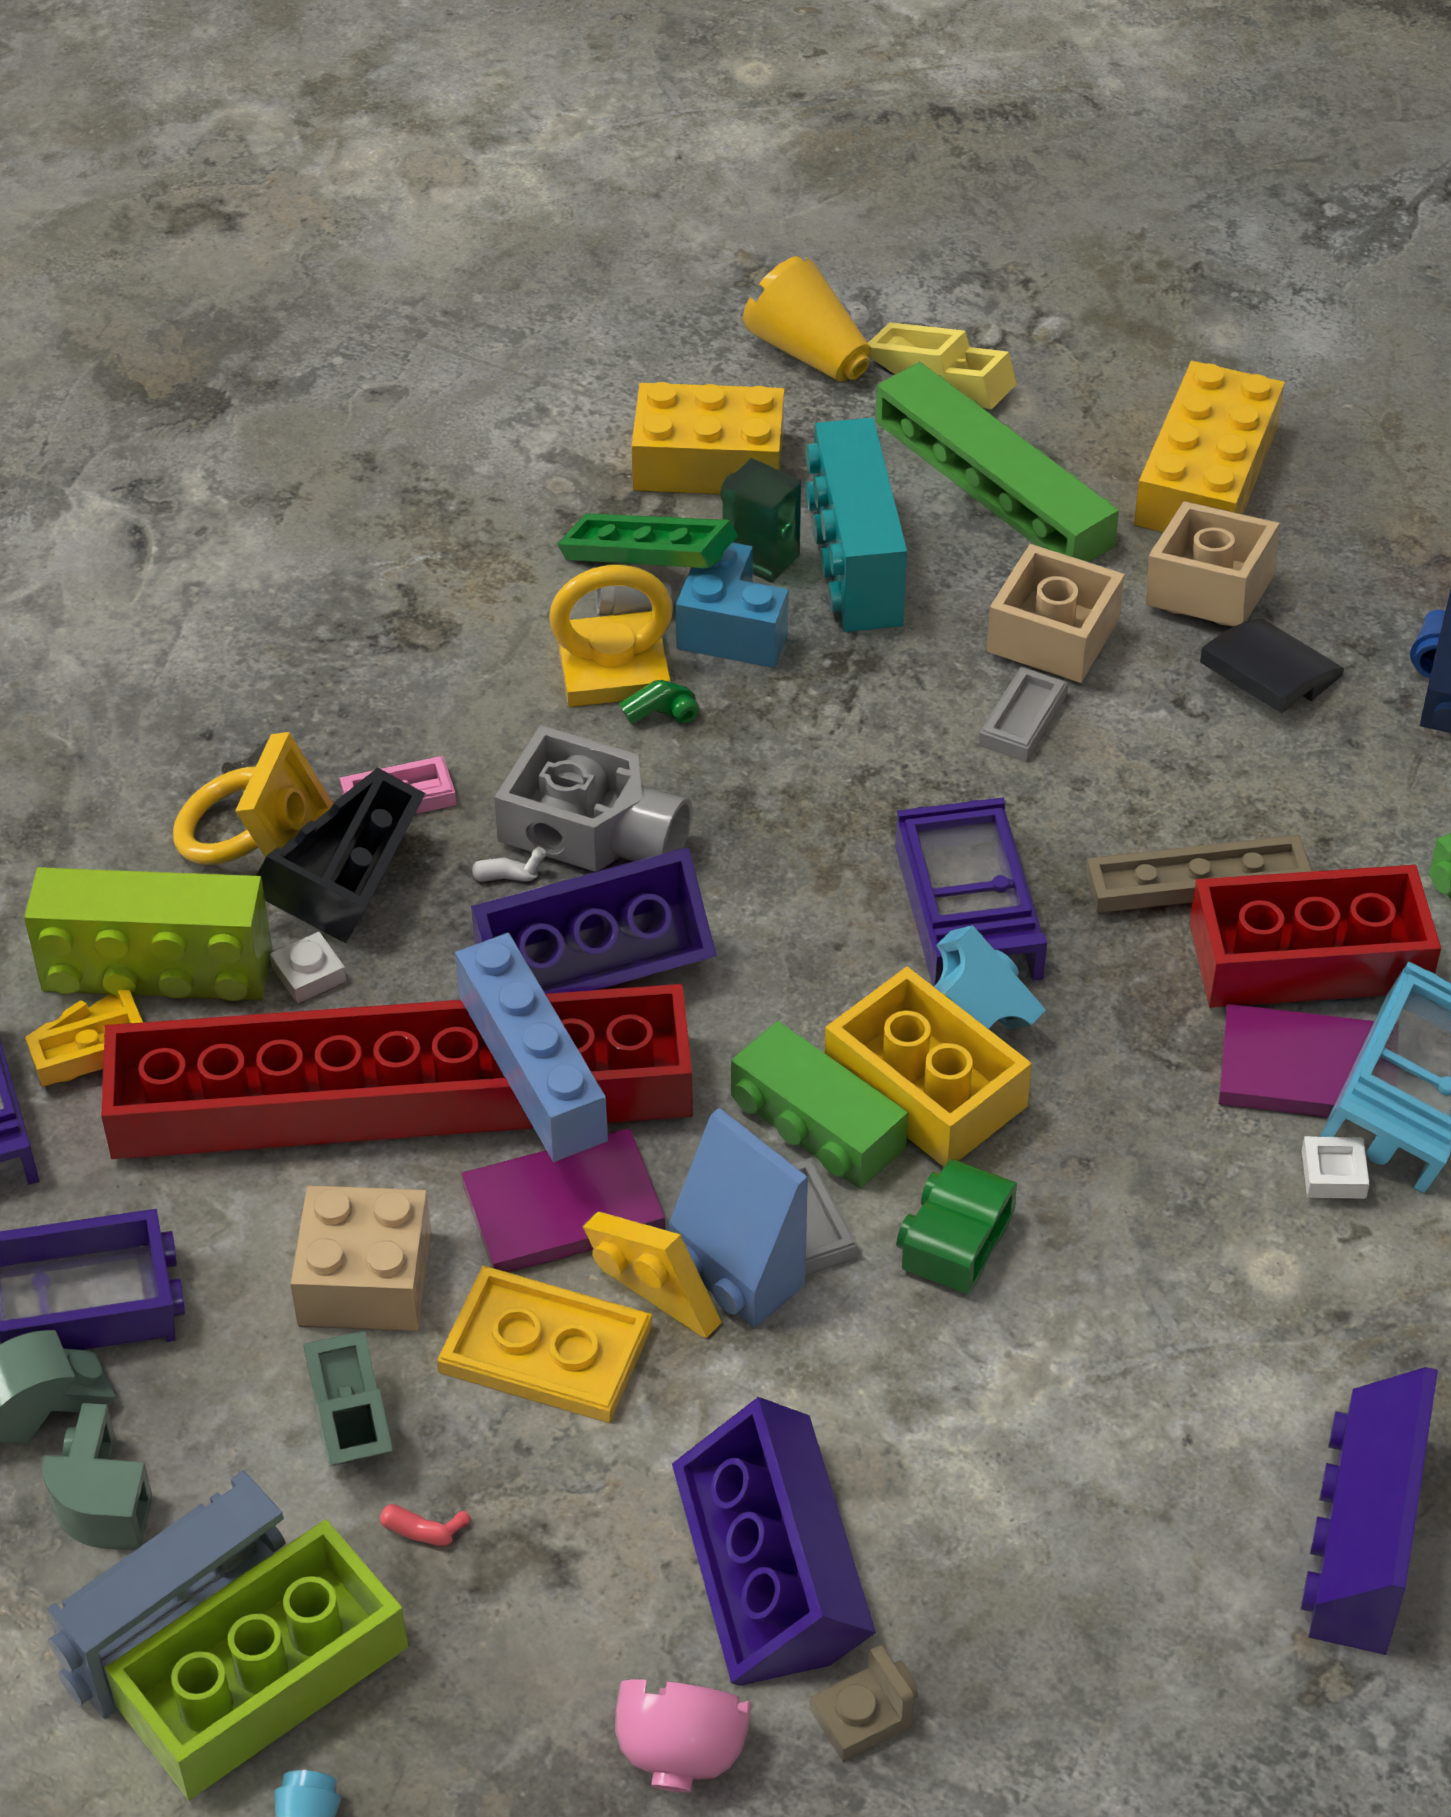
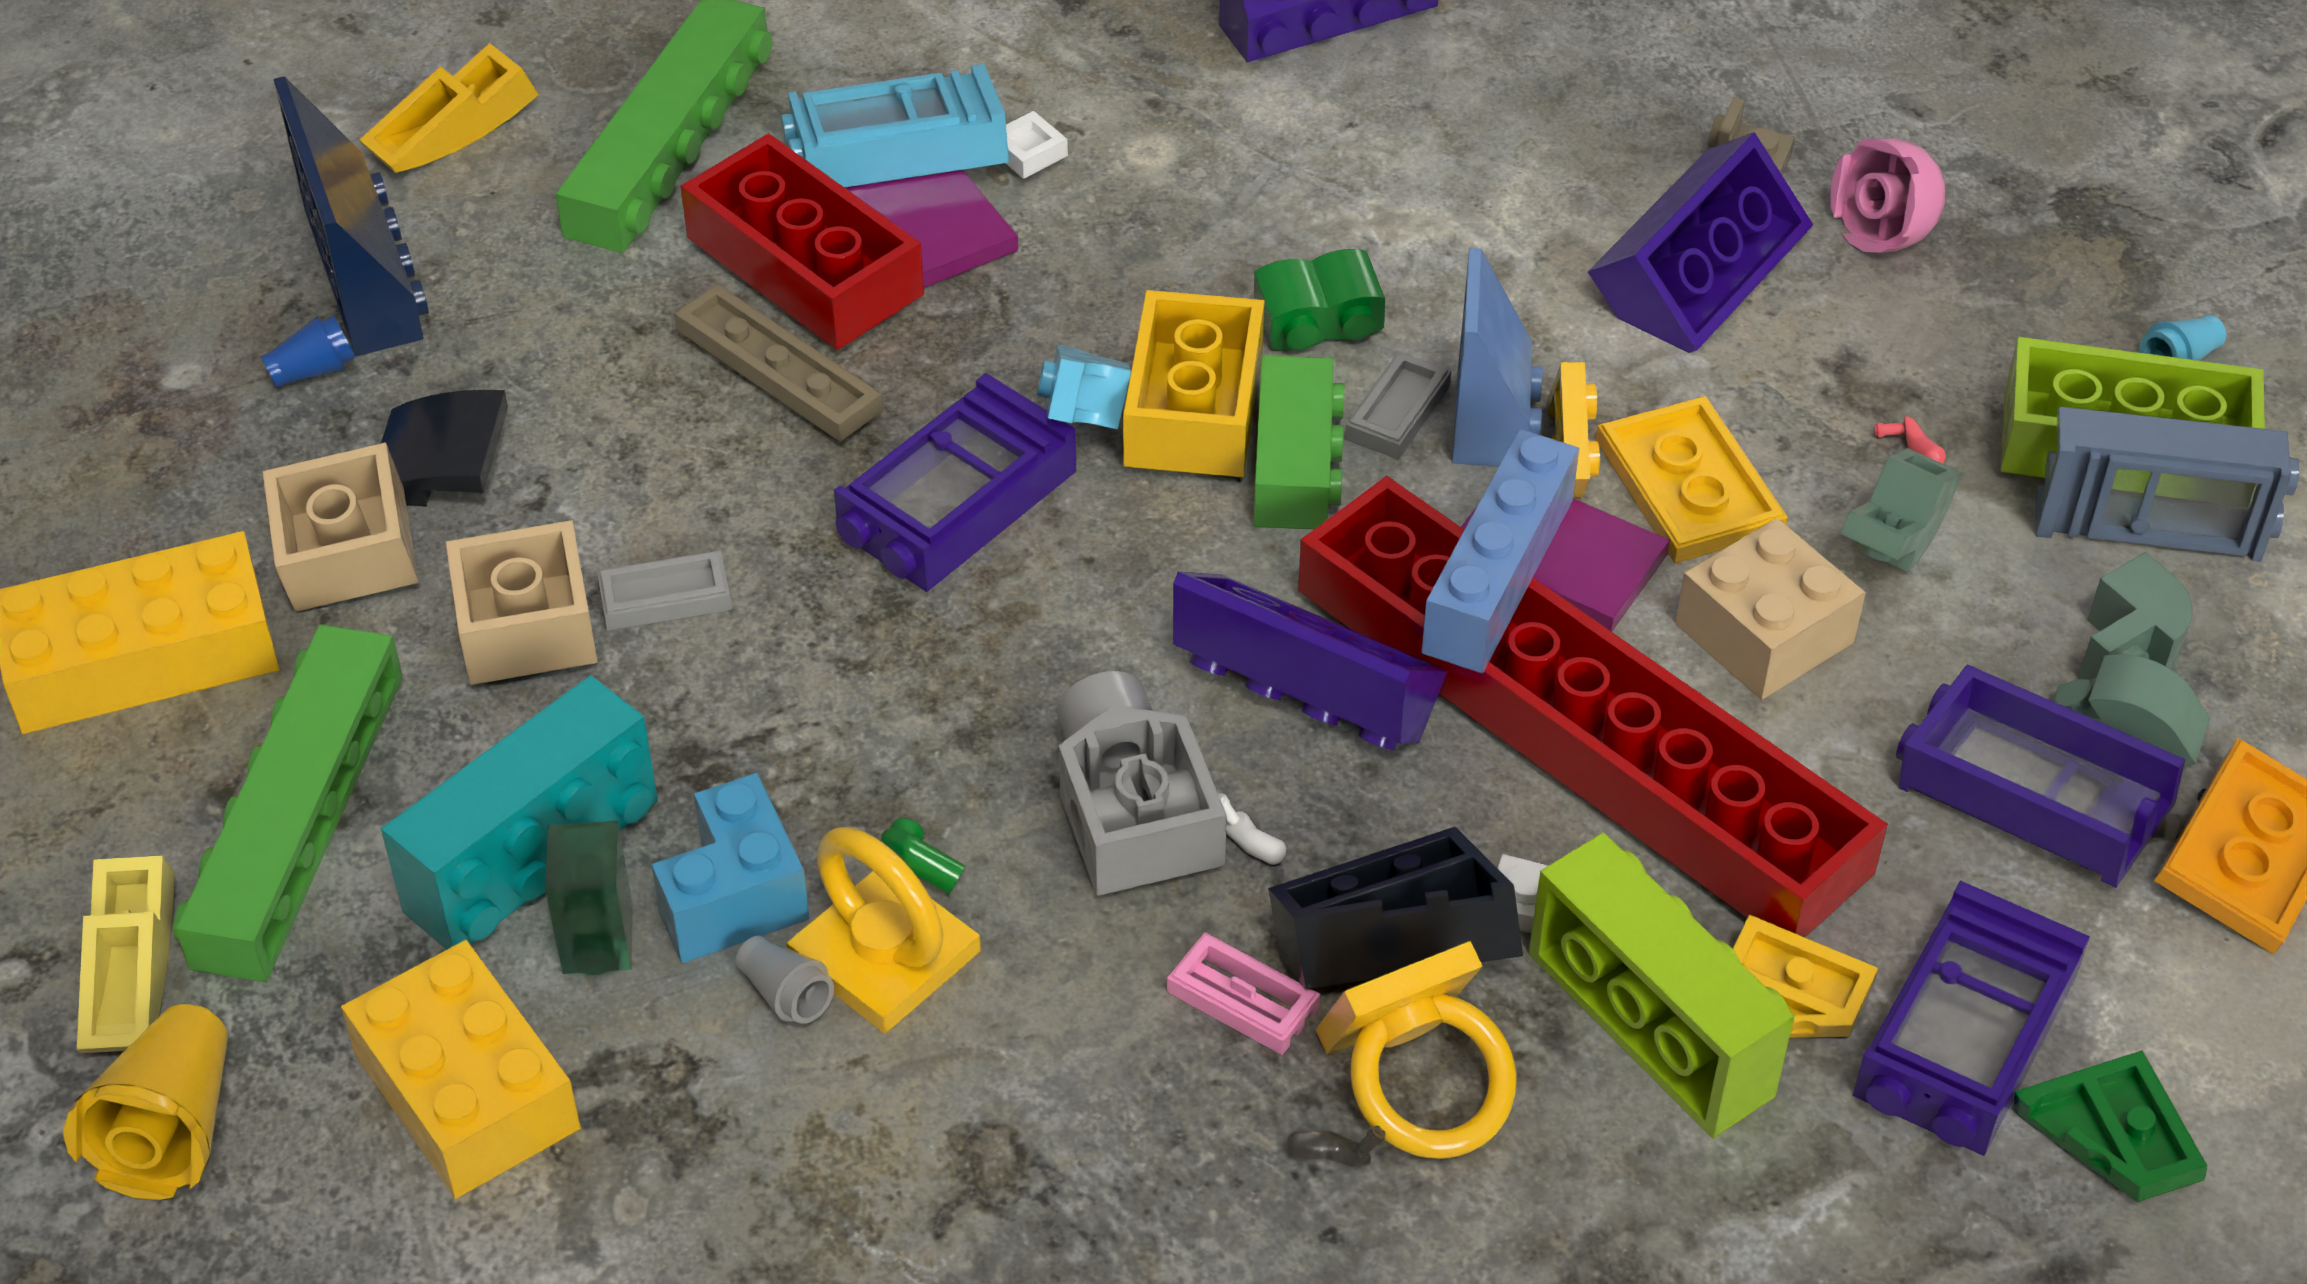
camera: 130 degrees left, 0 degrees up
(648, 540) = (720, 967): green plate -> none

